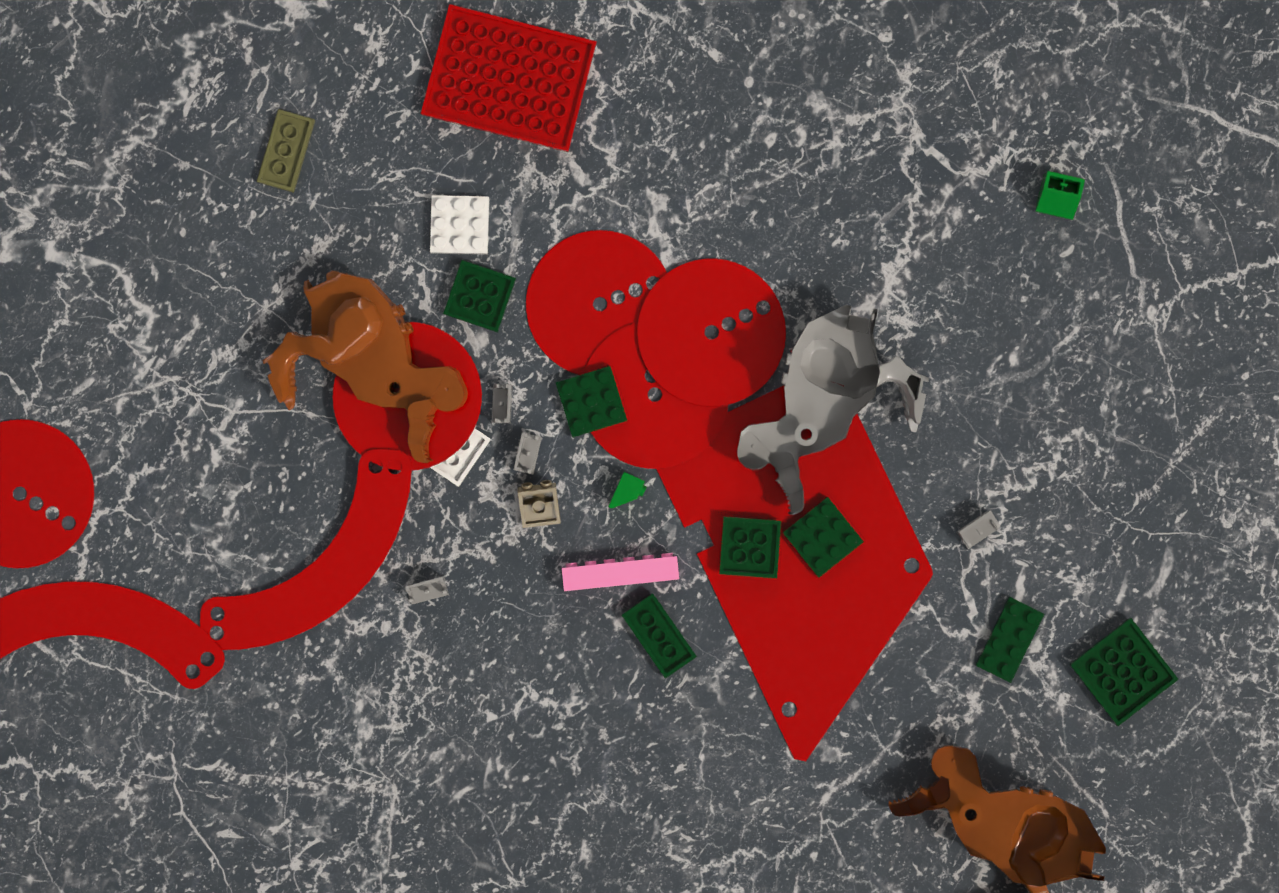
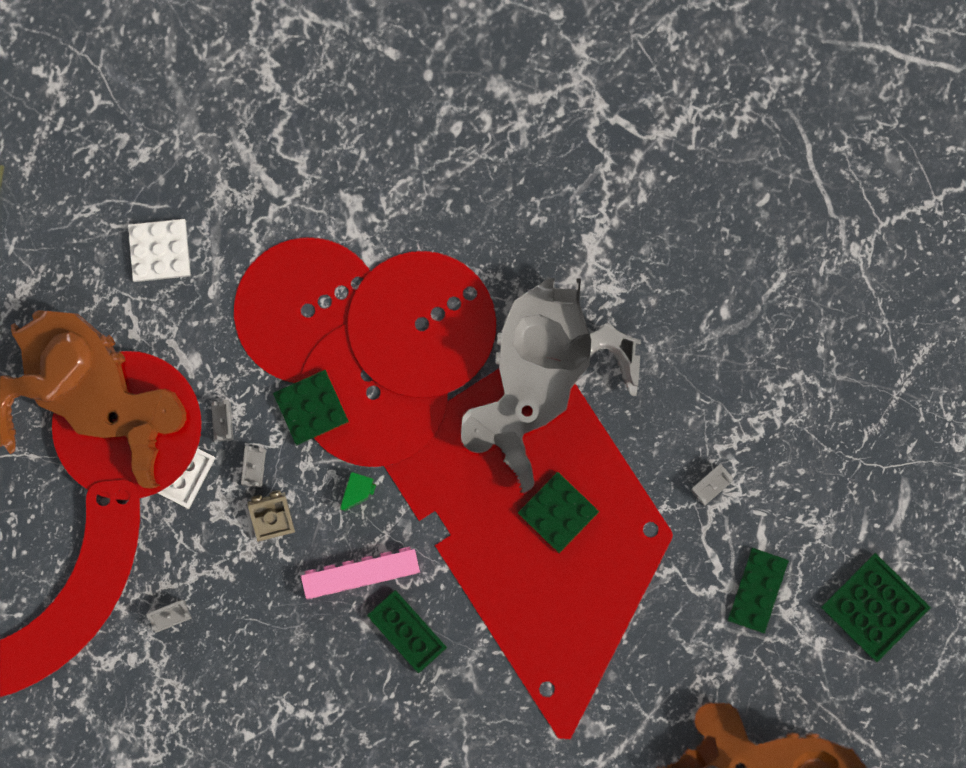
camera: 10 degrees left, 5 degrees down
(479, 296) = (187, 317): dark green plate -> none
(508, 78) = (190, 101): red plate -> none
(750, 547) = (486, 531): dark green plate -> none
(1059, 195) = (747, 146): green slope -> none

